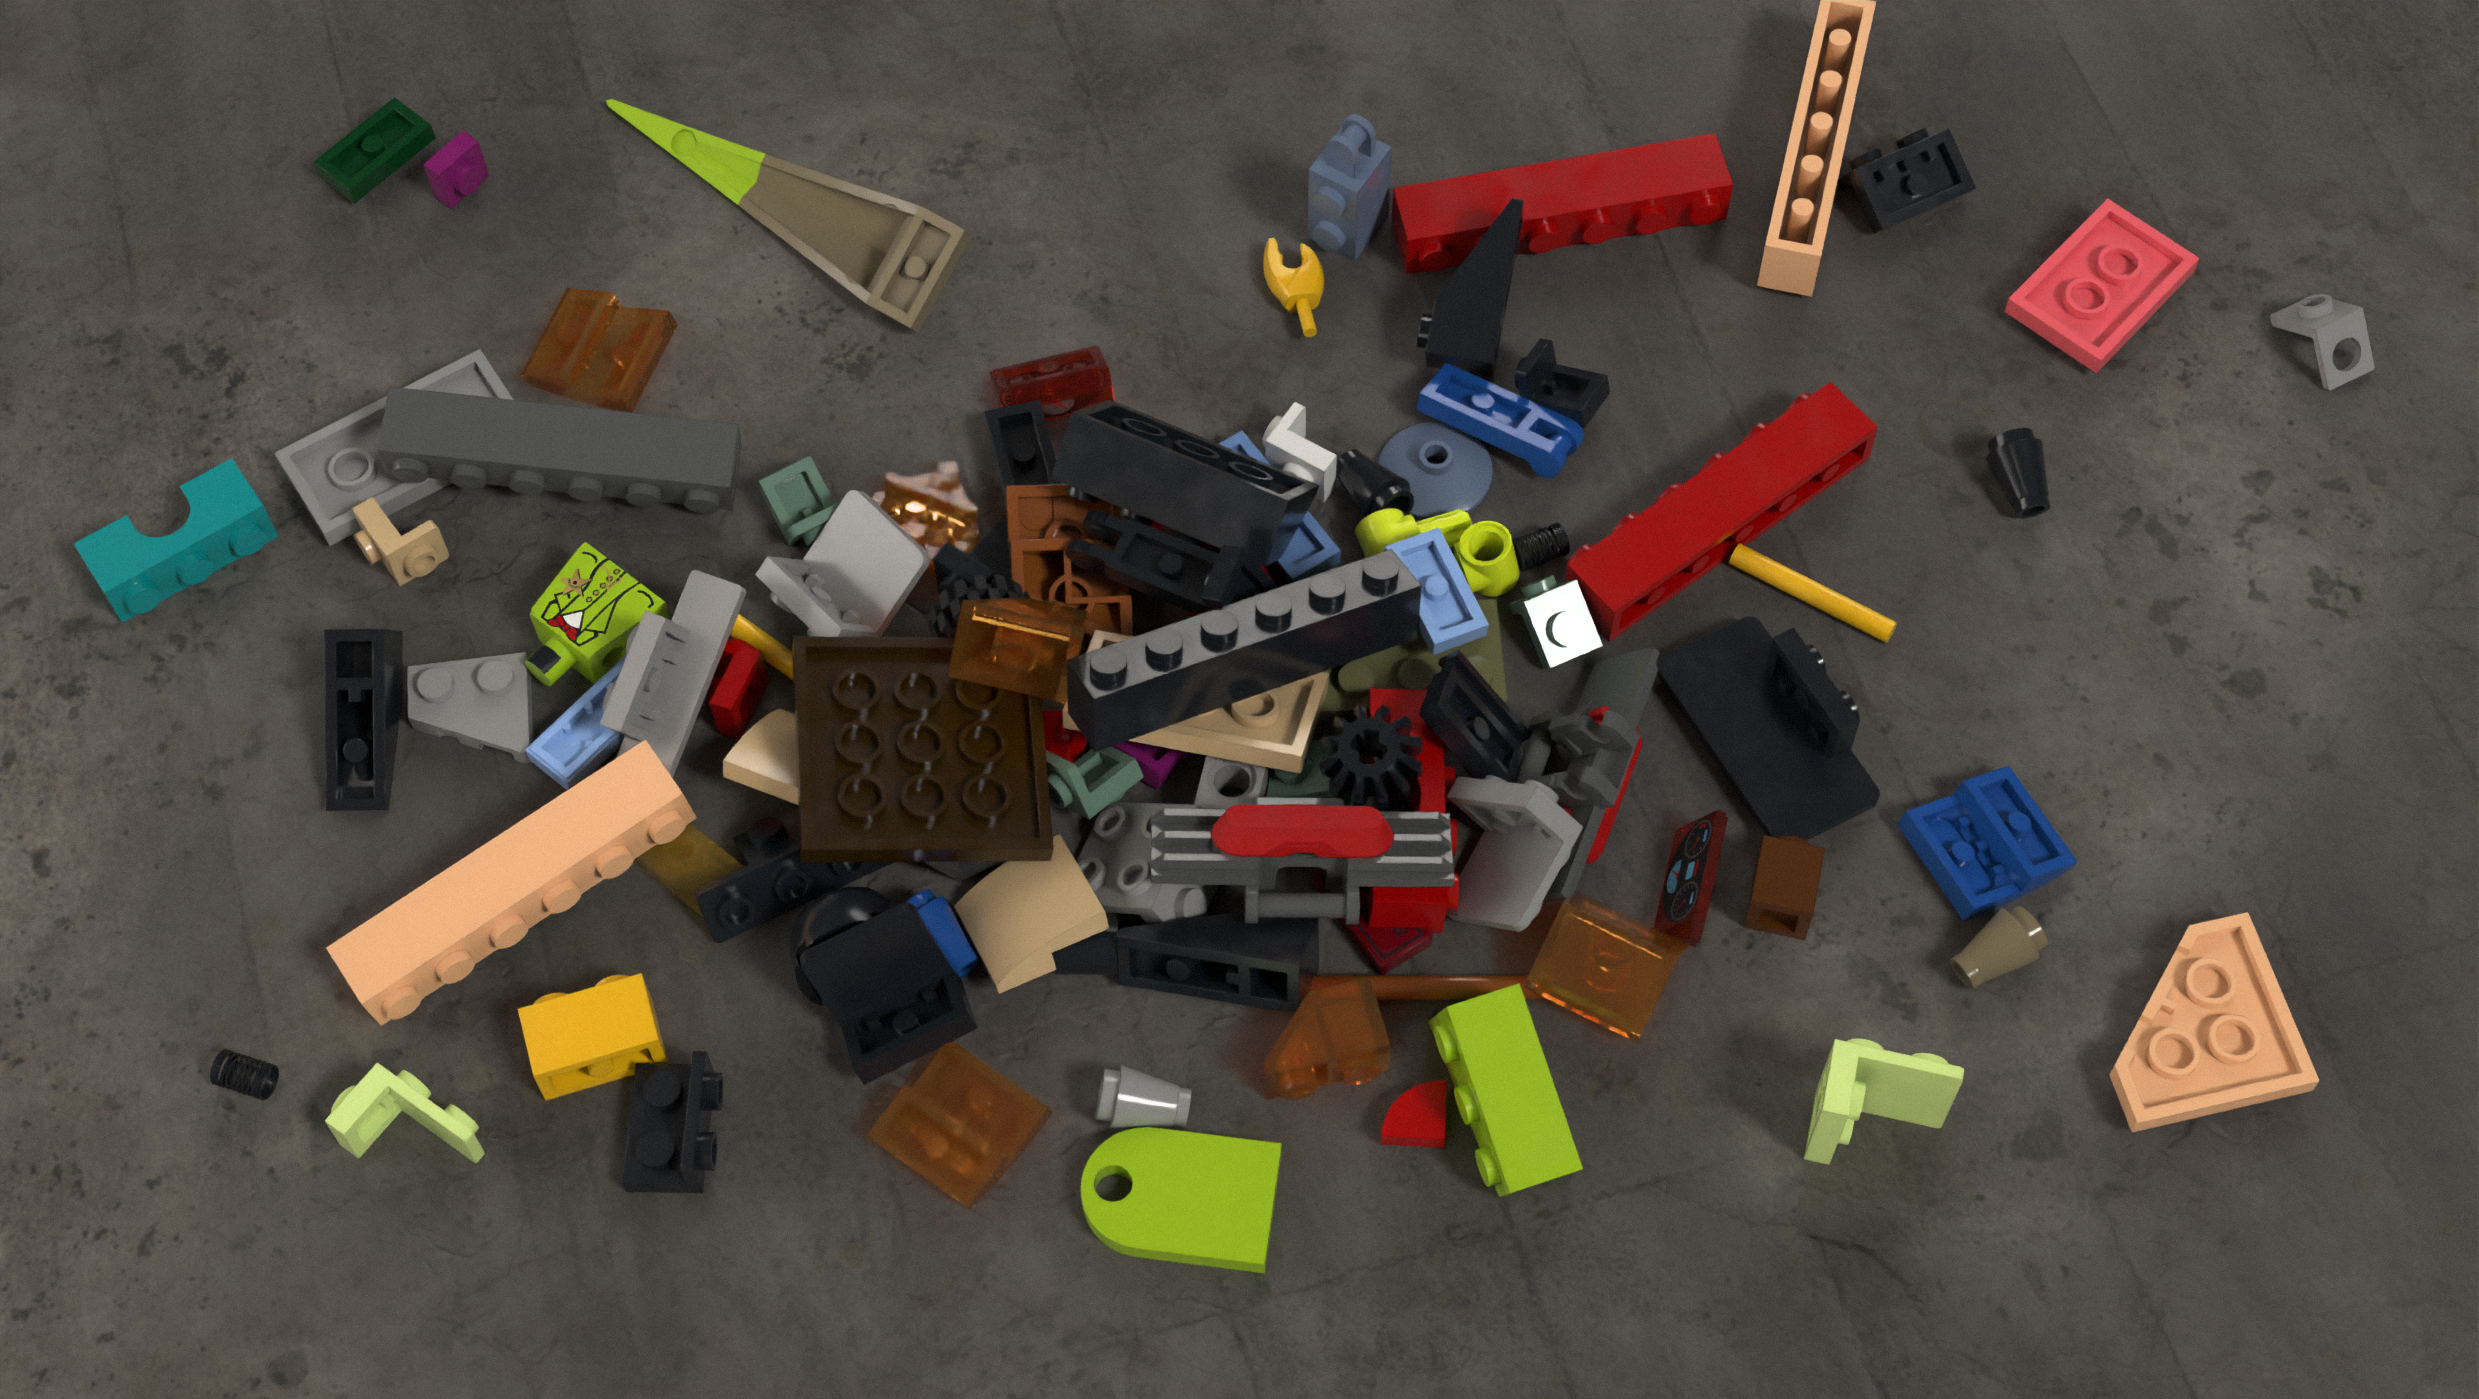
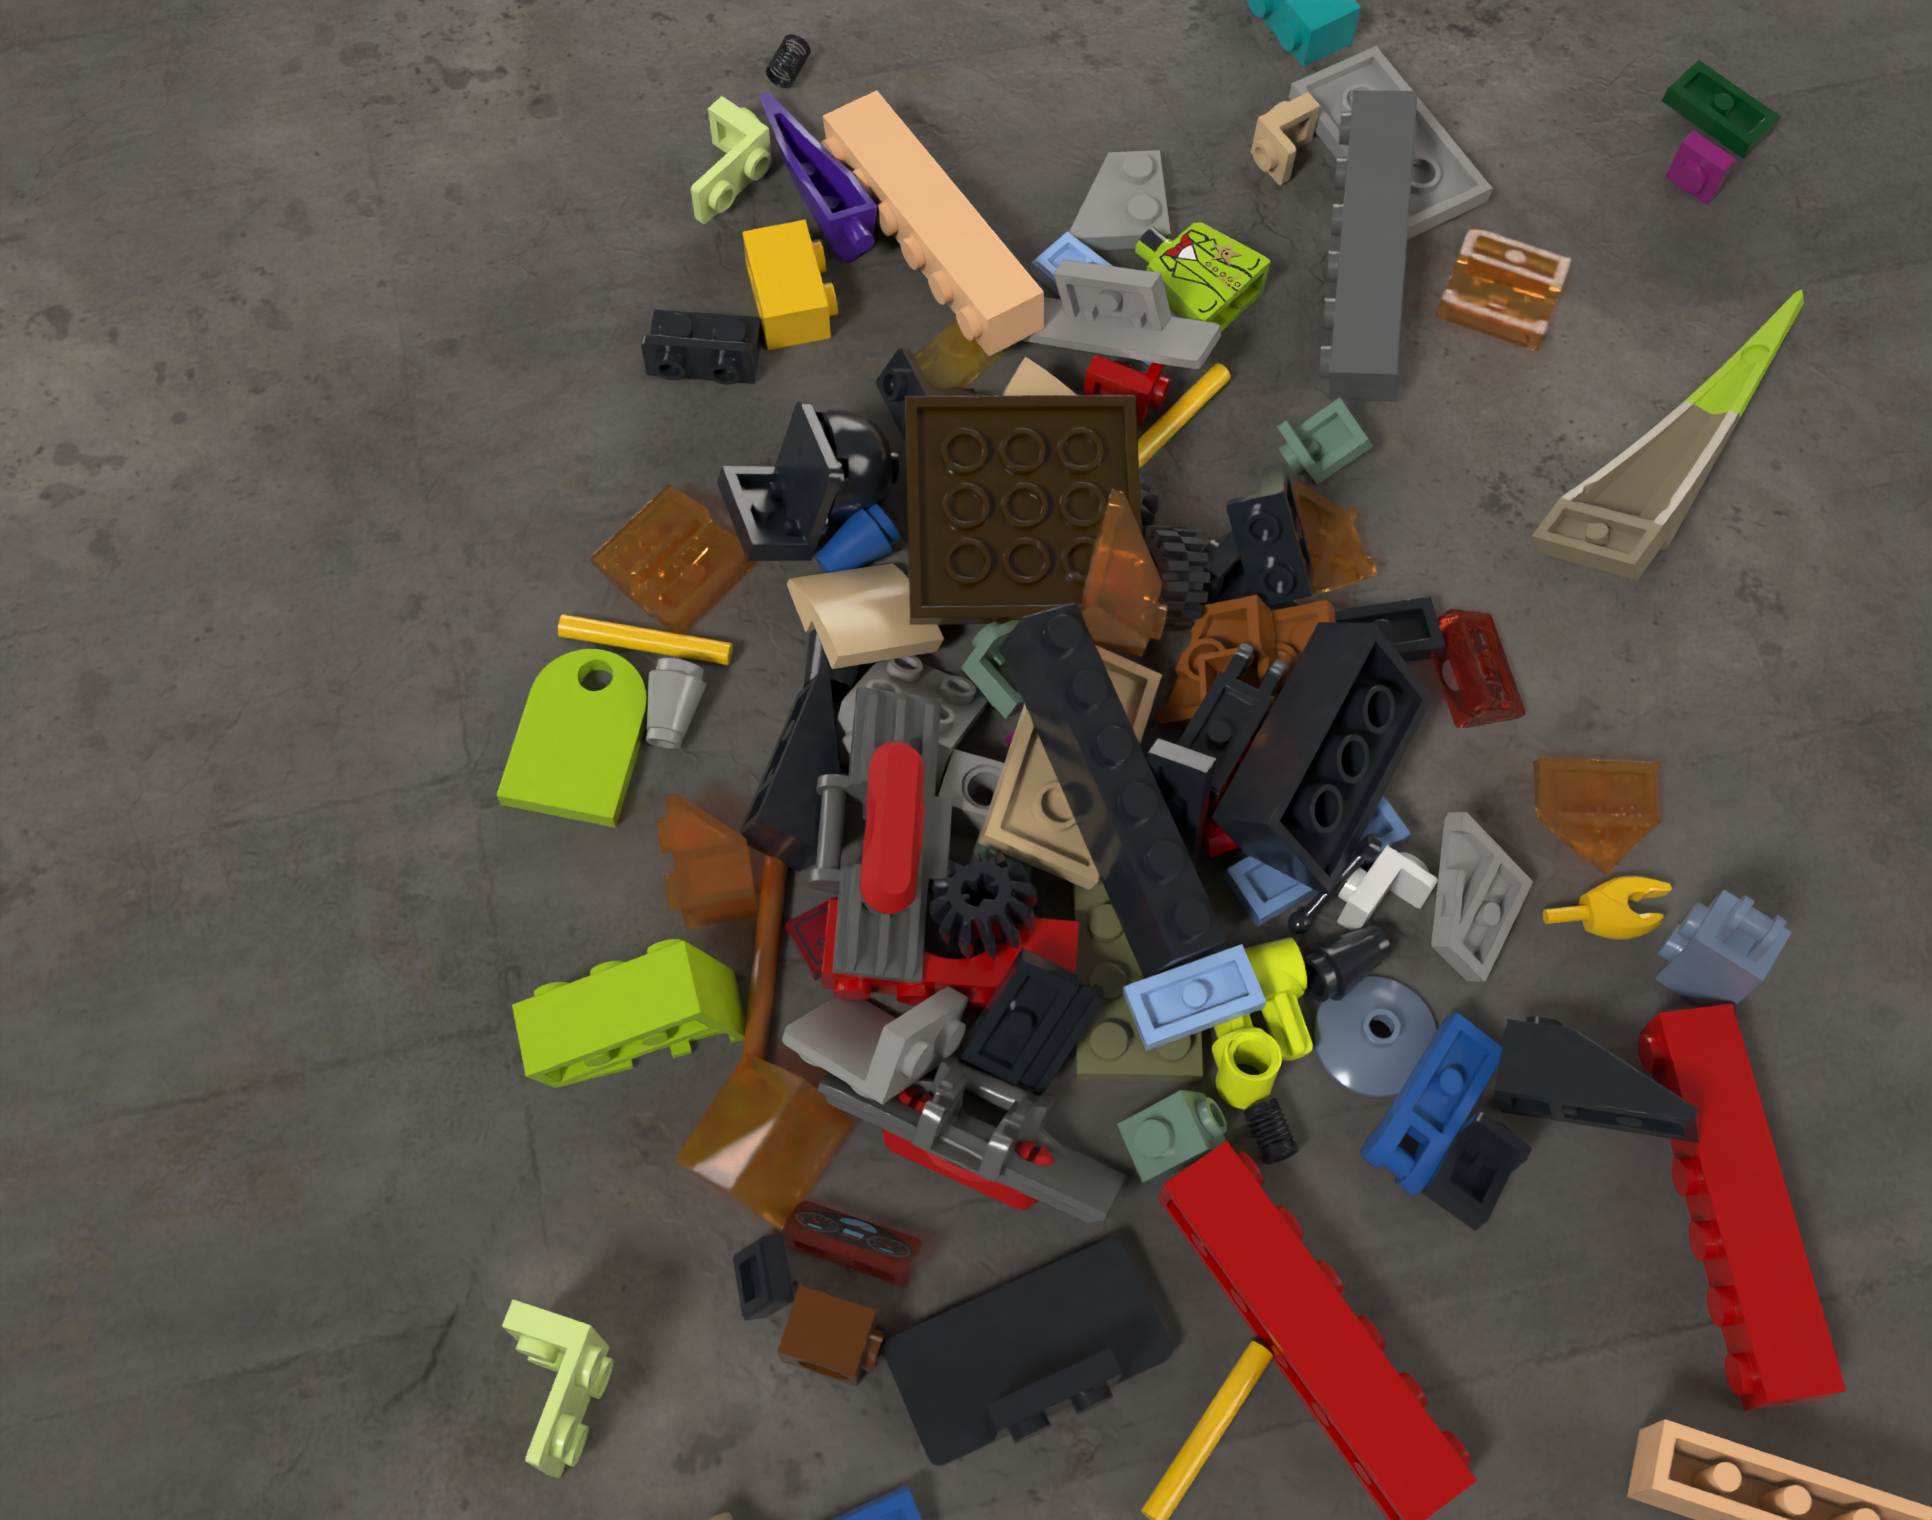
camera: 90 degrees right, 5 degrees up
(361, 716) = (1118, 115): black slope -> none
(452, 1005) = (827, 187): none -> dark purple piece
(851, 574) = (1221, 460): light grey bracket -> none
(949, 520) = (1272, 540): none -> black bracket
(1060, 1145) = (645, 639): none -> yellow bar
(1193, 291) = (1597, 805): none -> clear orange slope
(1273, 453) = (1300, 921): none -> black hinge
(1305, 379) = (1475, 897): none -> light grey wing
(1417, 1117) = (622, 937): red tile -> none
(1740, 946) = (763, 1277): none -> black tile

